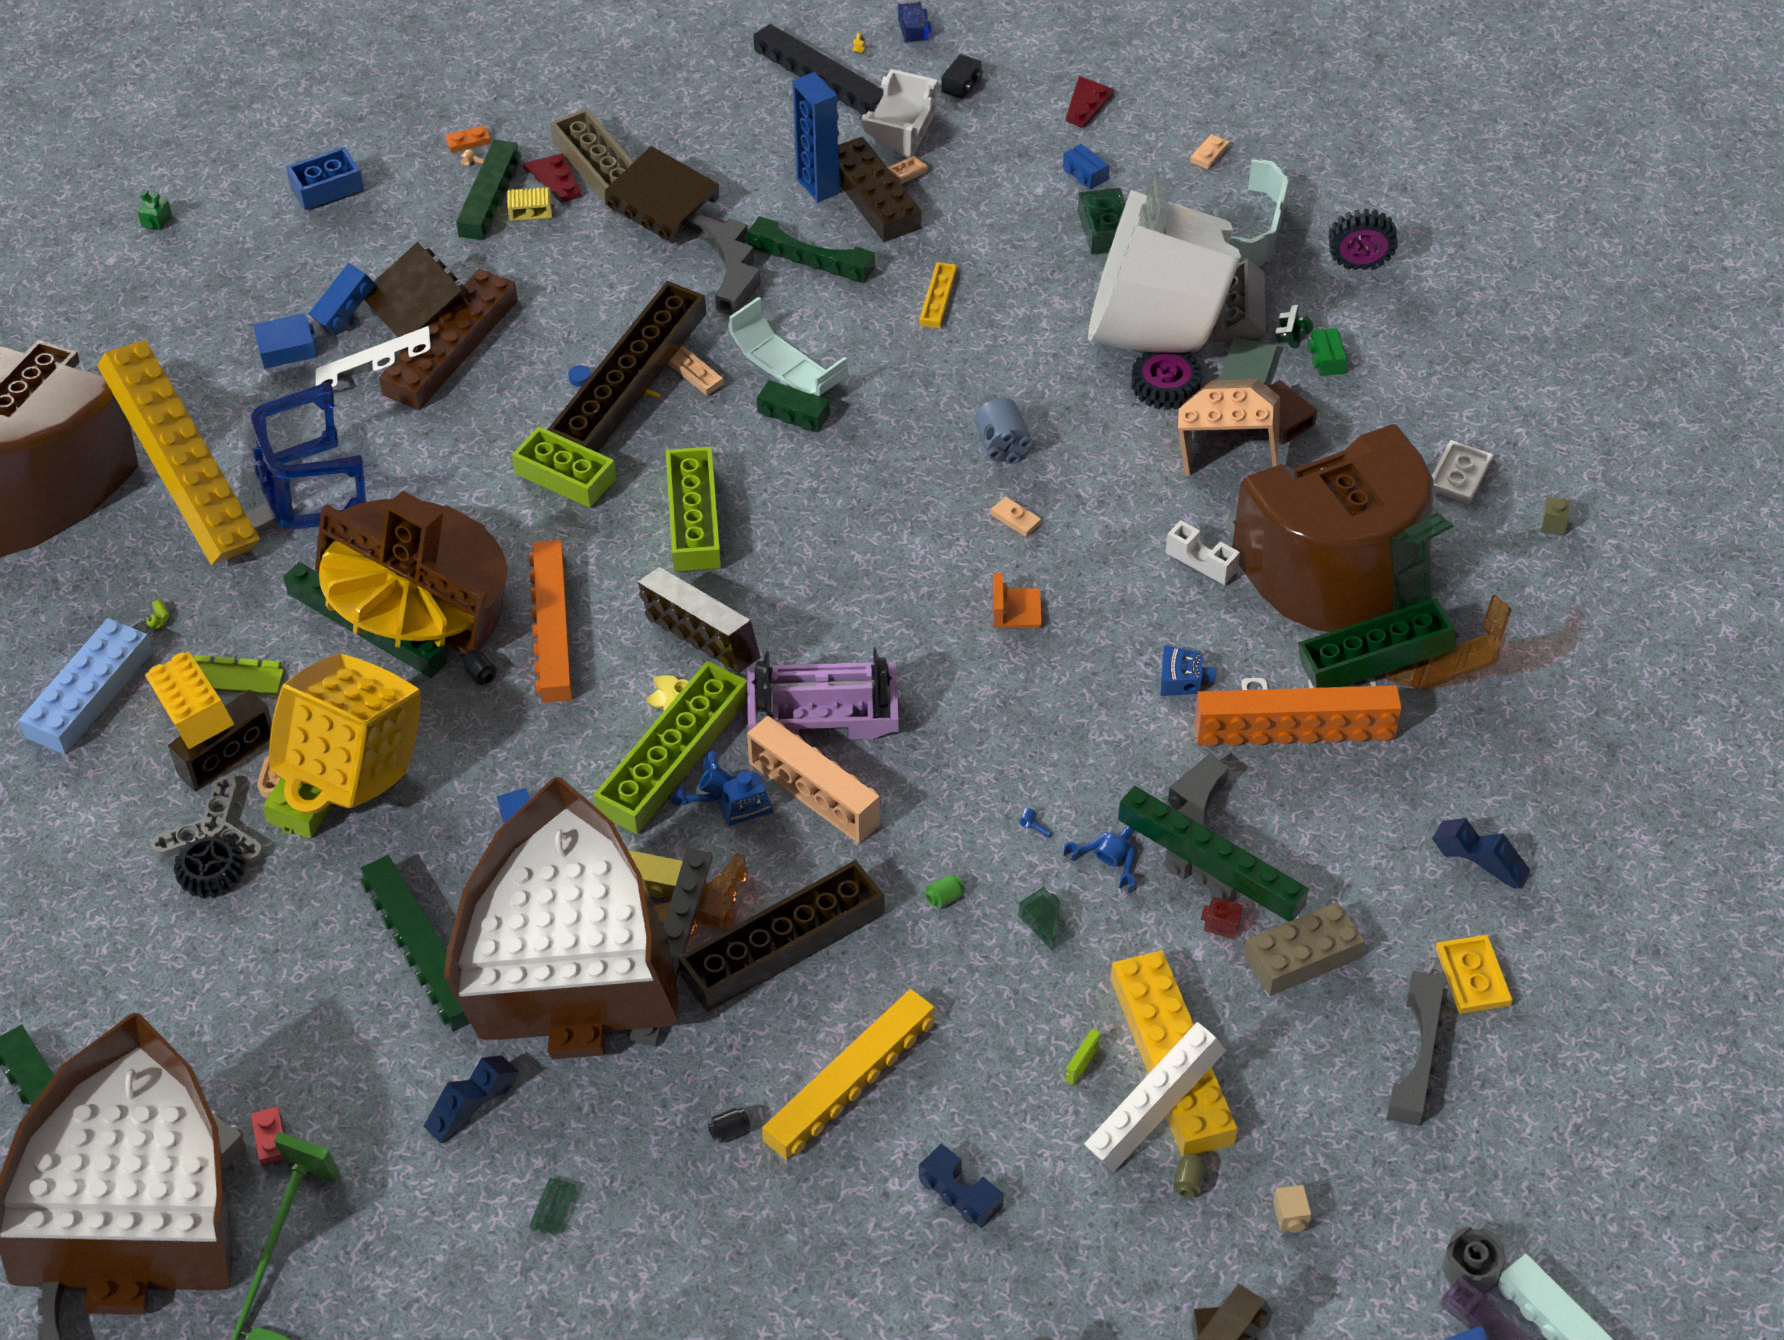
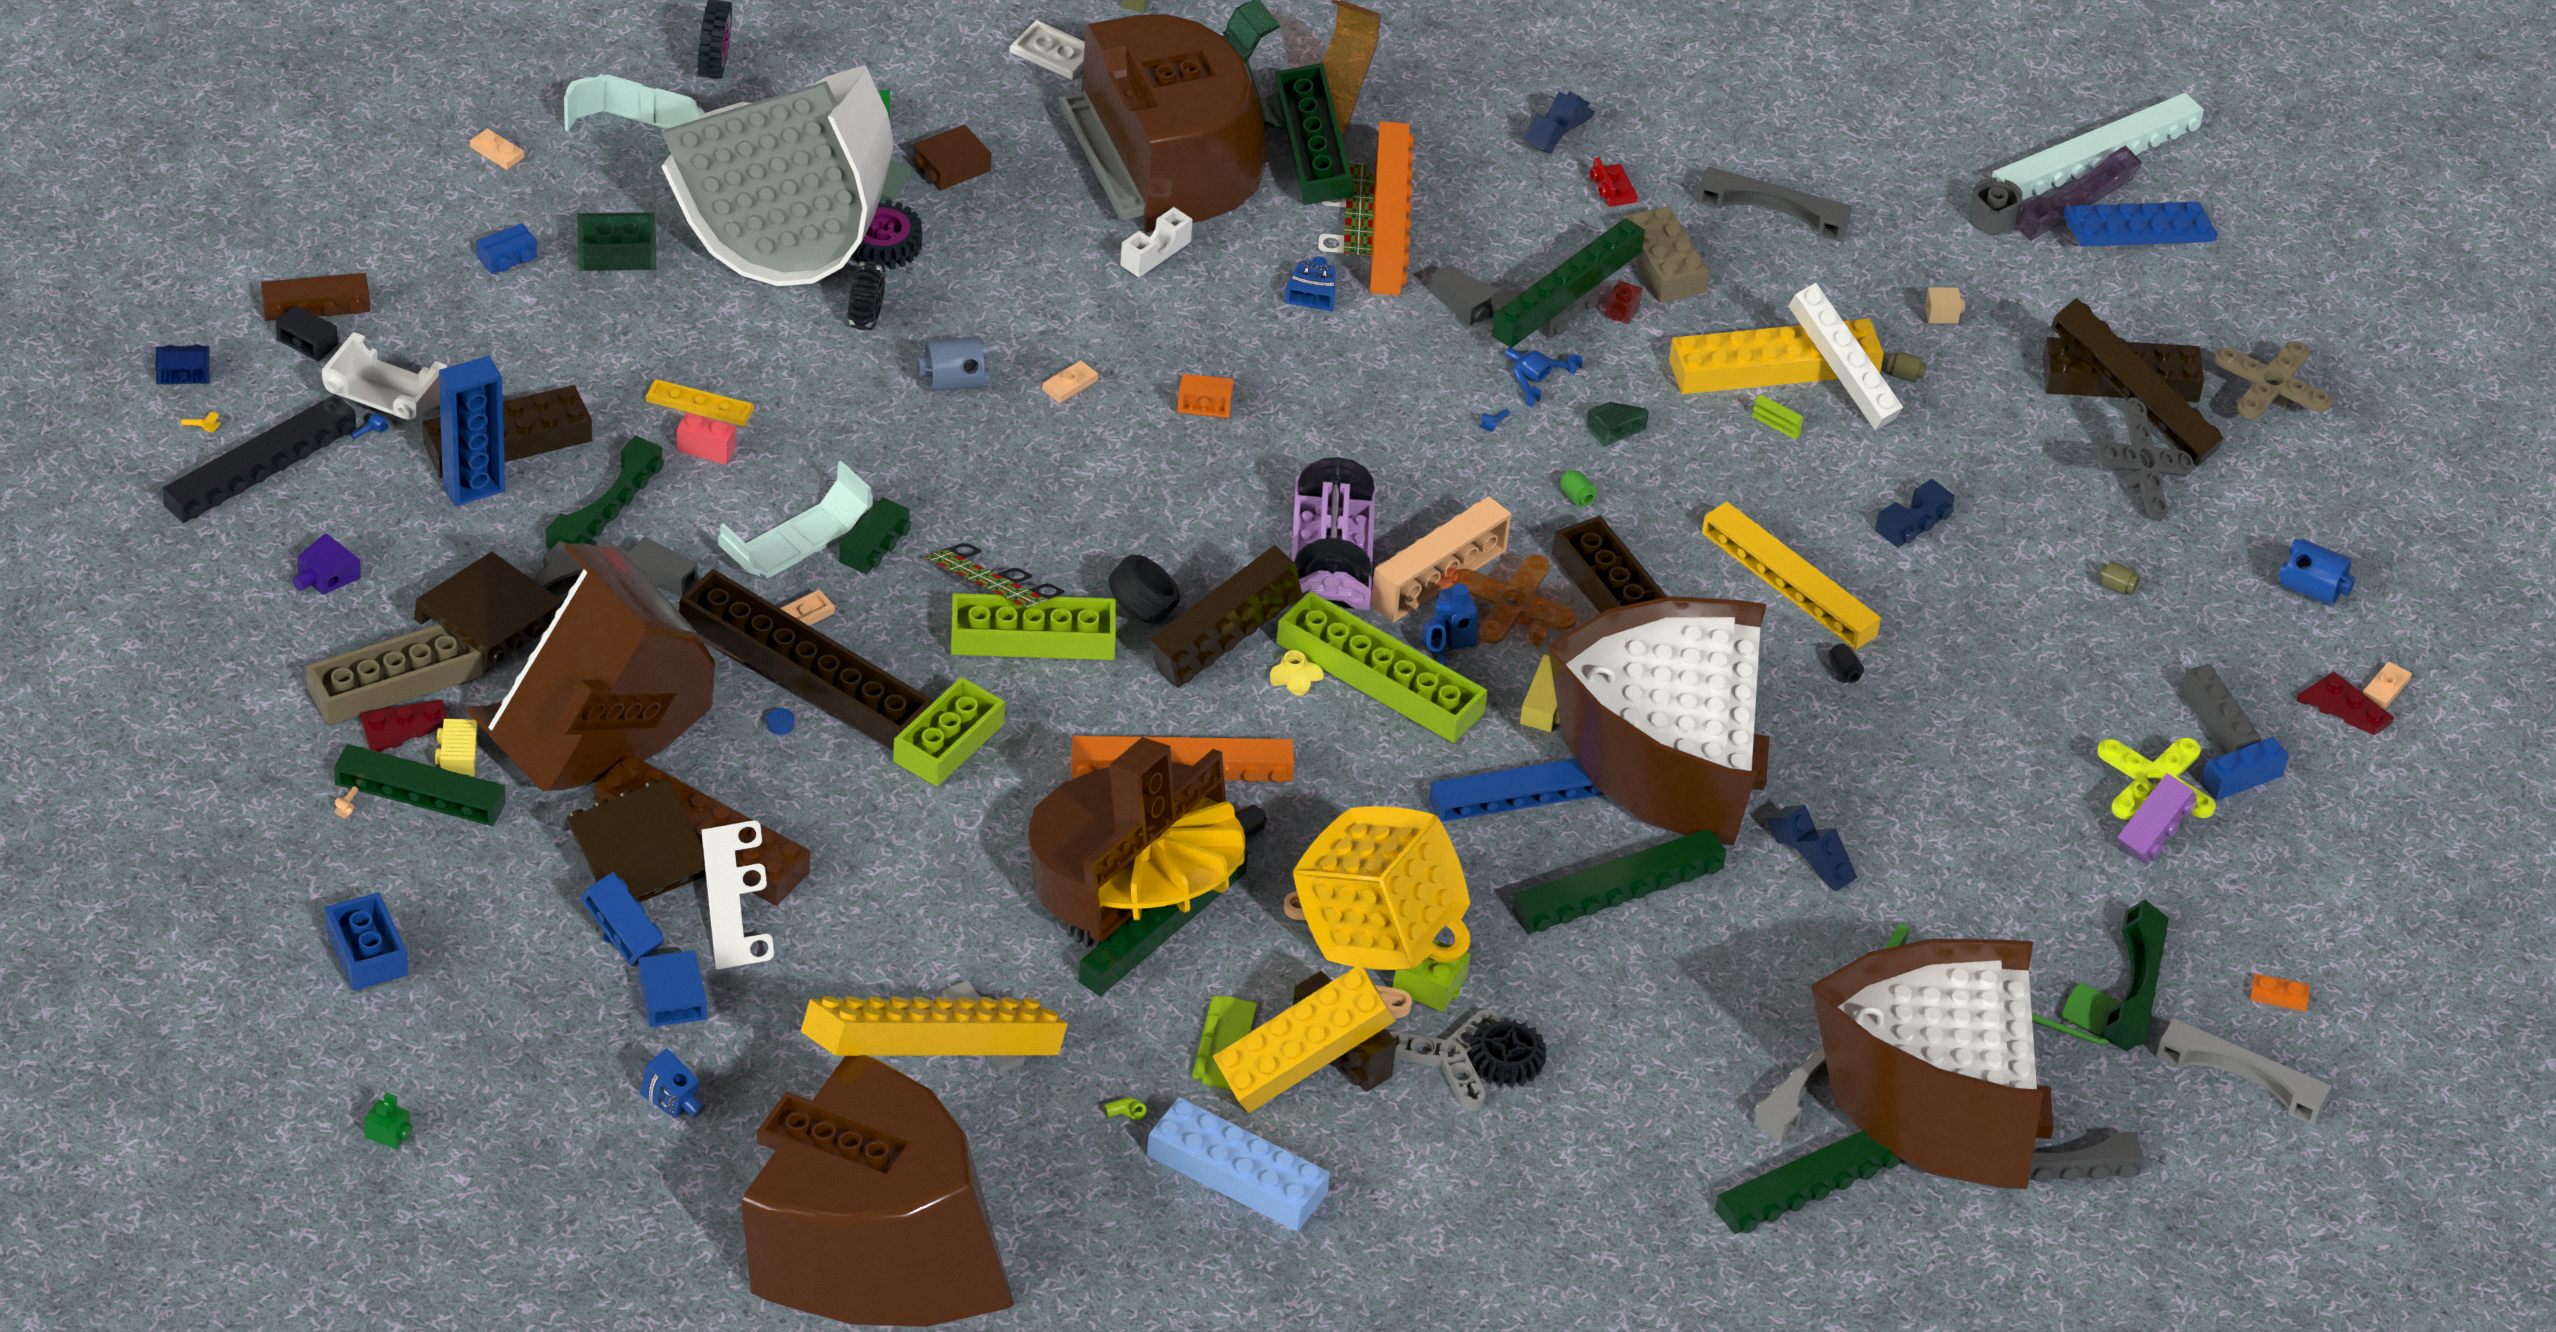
camera: 90 degrees left, 5 degrees down
(179, 345) = (671, 1086): none -> blue torso
(275, 475) = (989, 922): clear blue windscreen -> none
(468, 139) = (301, 807): orange plate -> none
(545, 1226) = (1928, 802): clear green tile -> none
(568, 234) = (605, 680): none -> reddish brown piece
(711, 116) = (326, 566): none -> dark purple torso
(739, 475) = (998, 583): none -> piece
(762, 563) = (1144, 589): none -> black tyre
(780, 841) = (1526, 603): none -> clear orange piece
(887, 297) = (706, 438): none -> coral brick
(1002, 76) = (316, 294): none -> reddish brown brick
(1074, 367) = (866, 295): none -> black gear
(1087, 101) = (375, 233): dark red wing -> none
(1230, 406) = (987, 179): light nougat windscreen -> none
(1408, 904) = (1612, 184): none -> red bracket
(1473, 974) = (1692, 155): yellow plate -> none

